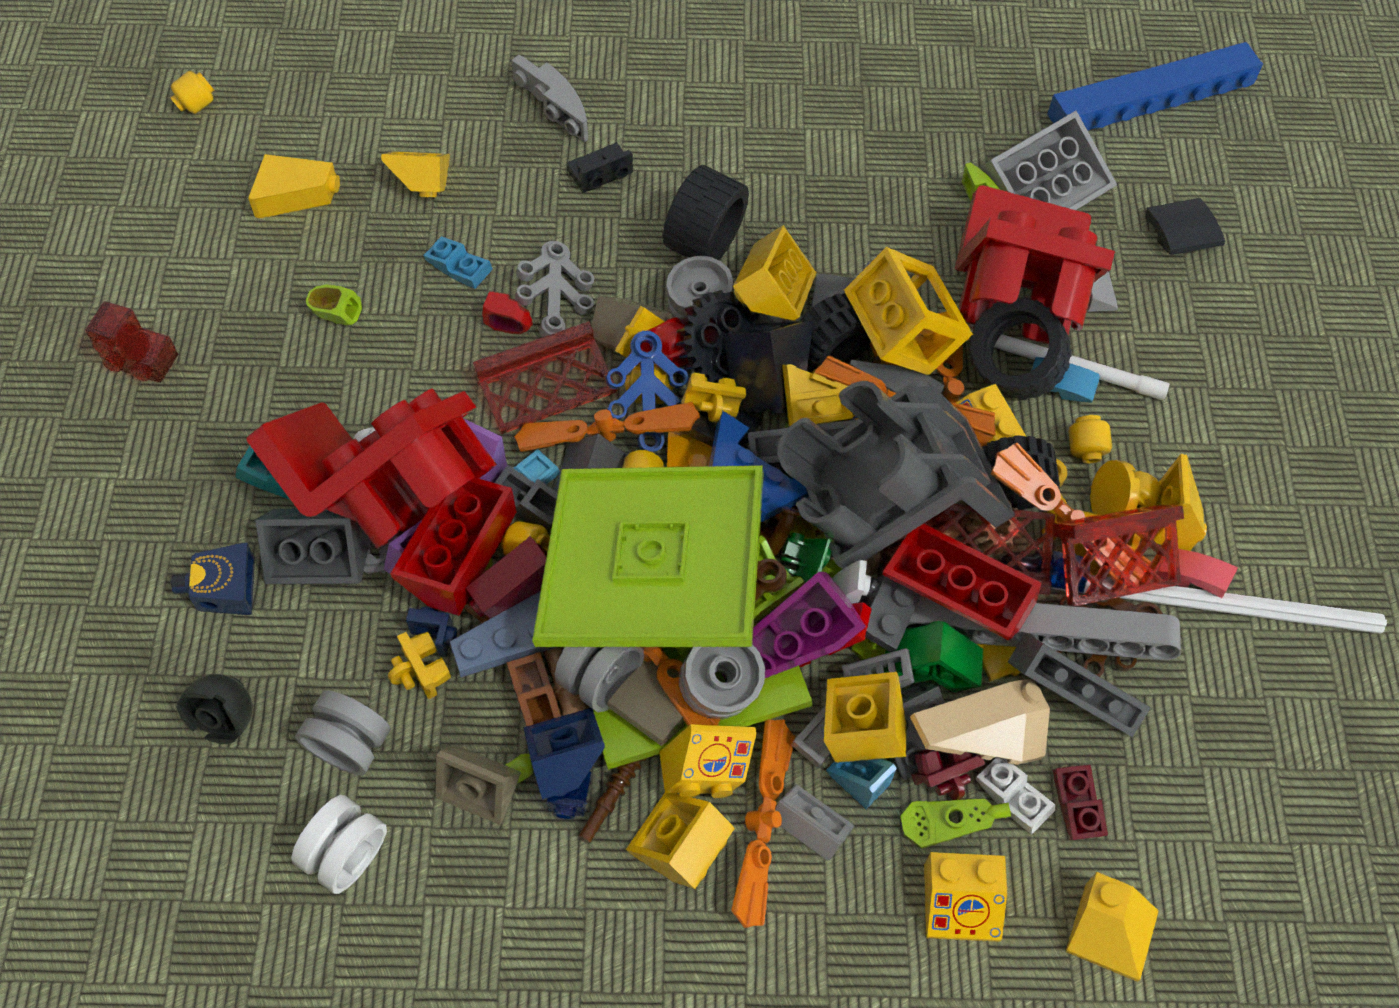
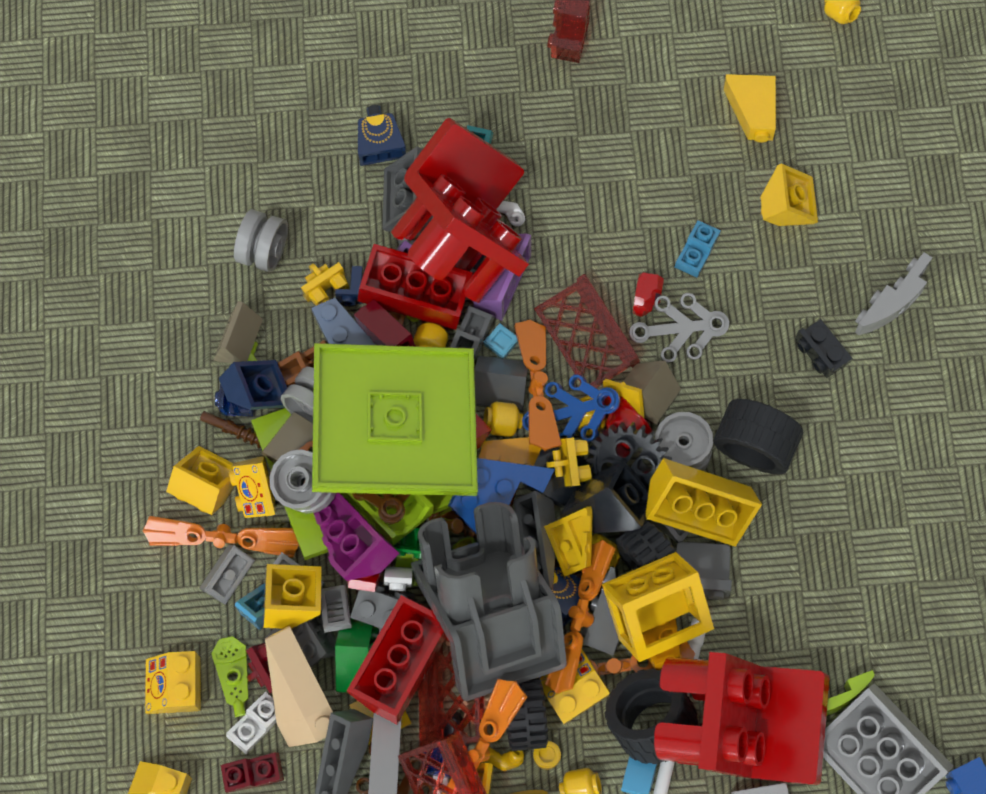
camera: 90 degrees right, 10 degrees up
(216, 706) = (280, 158): pearl dark grey cylinder -> none
(334, 304) = (633, 162): lime rock -> none
(338, 843) = (182, 254): white wheel -> none

